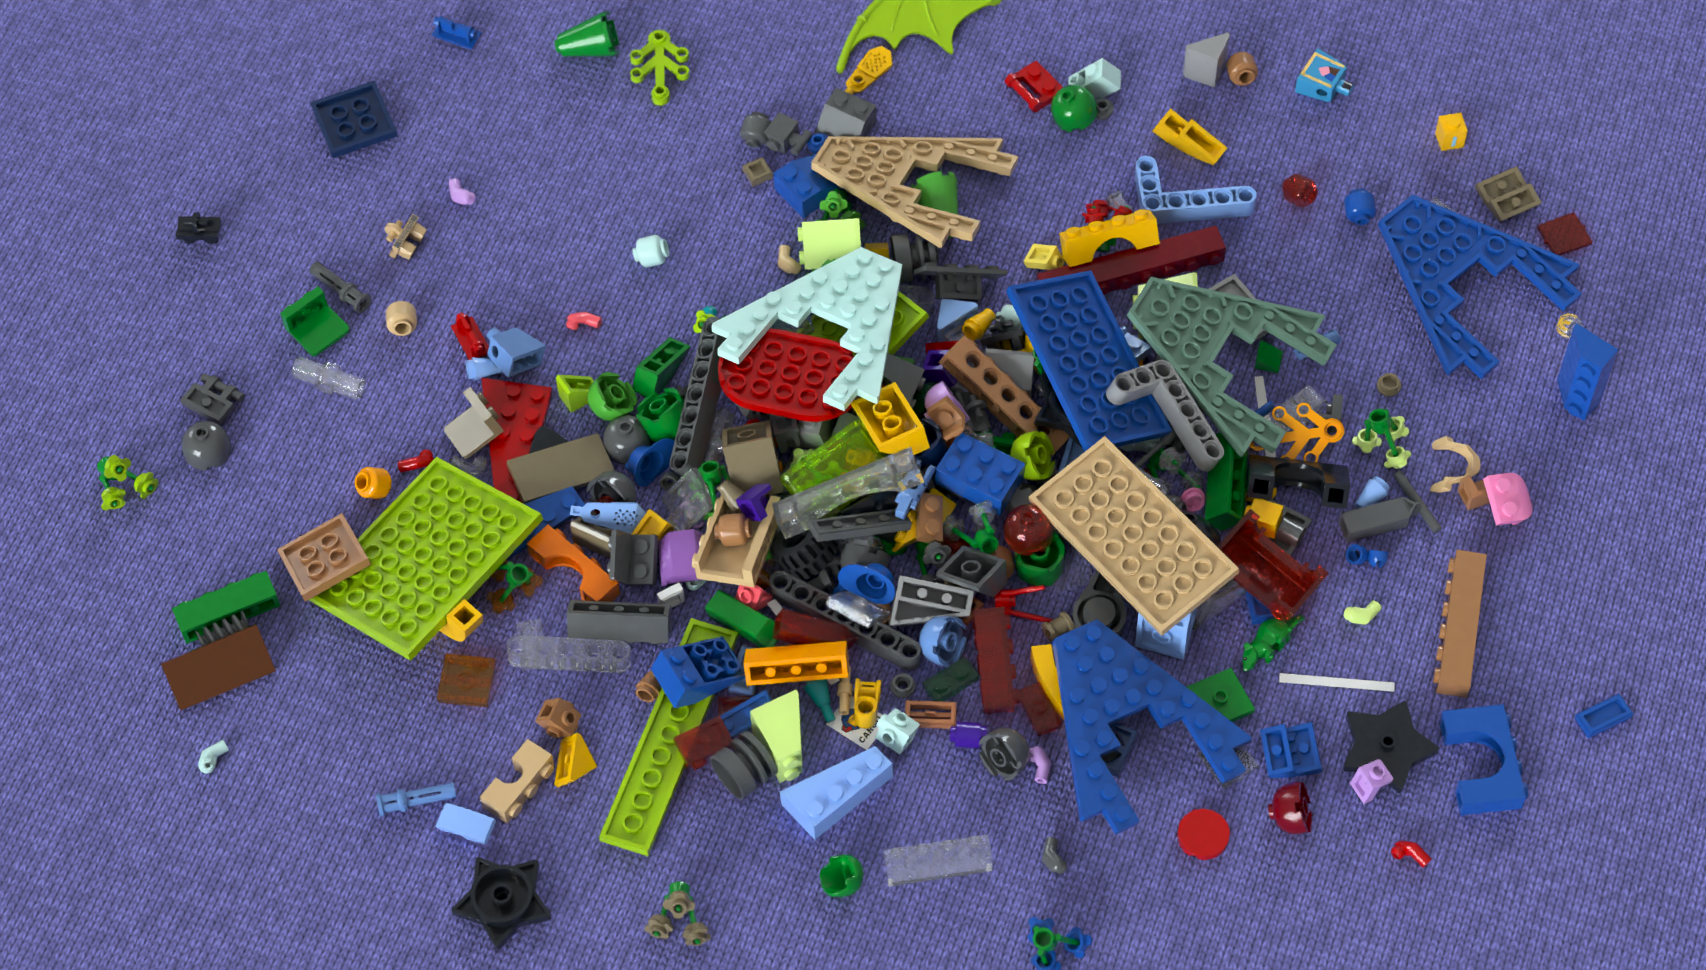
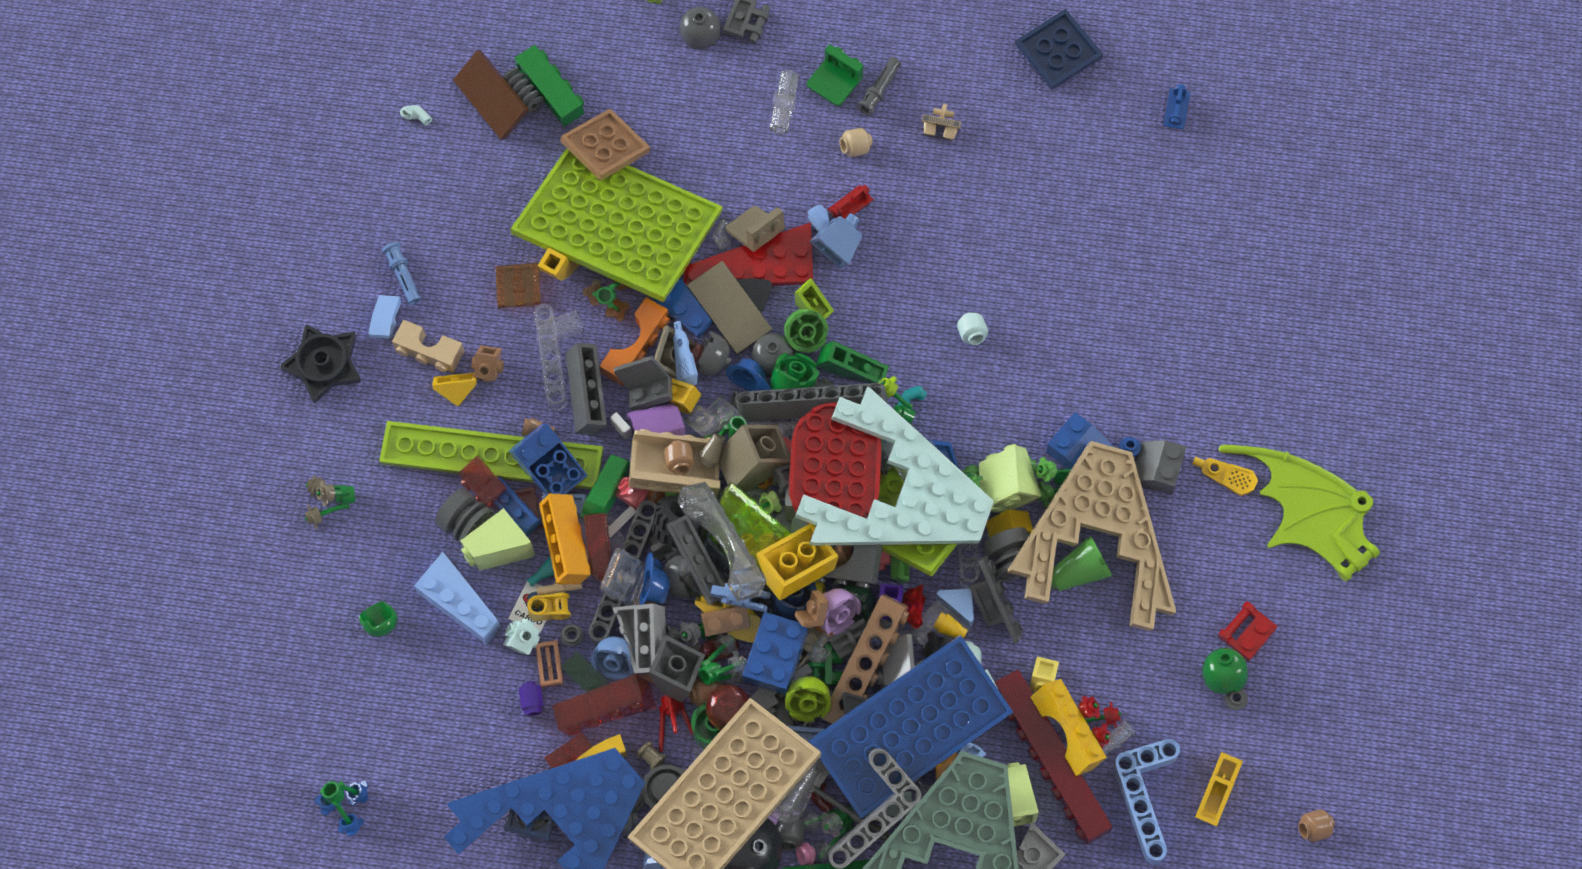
camera: 80 degrees right, 10 degrees up
(373, 482) = (684, 163): light orange head -> none
(421, 461) = (720, 199): red arm -> none
(460, 195) = (999, 155): lavender arm -> none
(583, 317) = (891, 289): coral arm -> none
(589, 38) = (1195, 223): green cone -> none
(659, 41) = (1186, 287): lime plant -> none
(753, 129) = (1129, 388): dark grey head -> none
(754, 502) = (706, 466): dark purple panel -> none
(757, 171) = (1086, 401): dark tan tile -> none
(784, 133) = (1130, 414): dark grey brick -> none
(787, 263) = (991, 445): tan arm -> none
(938, 860) = (403, 693): clear brick -> none
(1004, 752) = (517, 733): dark grey cylinder -> none
(1043, 762) = (517, 766): lavender arm -> none
(1051, 858) = (426, 789): dark grey arm -> none
(1099, 78) = (1264, 686): light aqua slope -> none
(1206, 59) = (1313, 790): light grey slope -> none

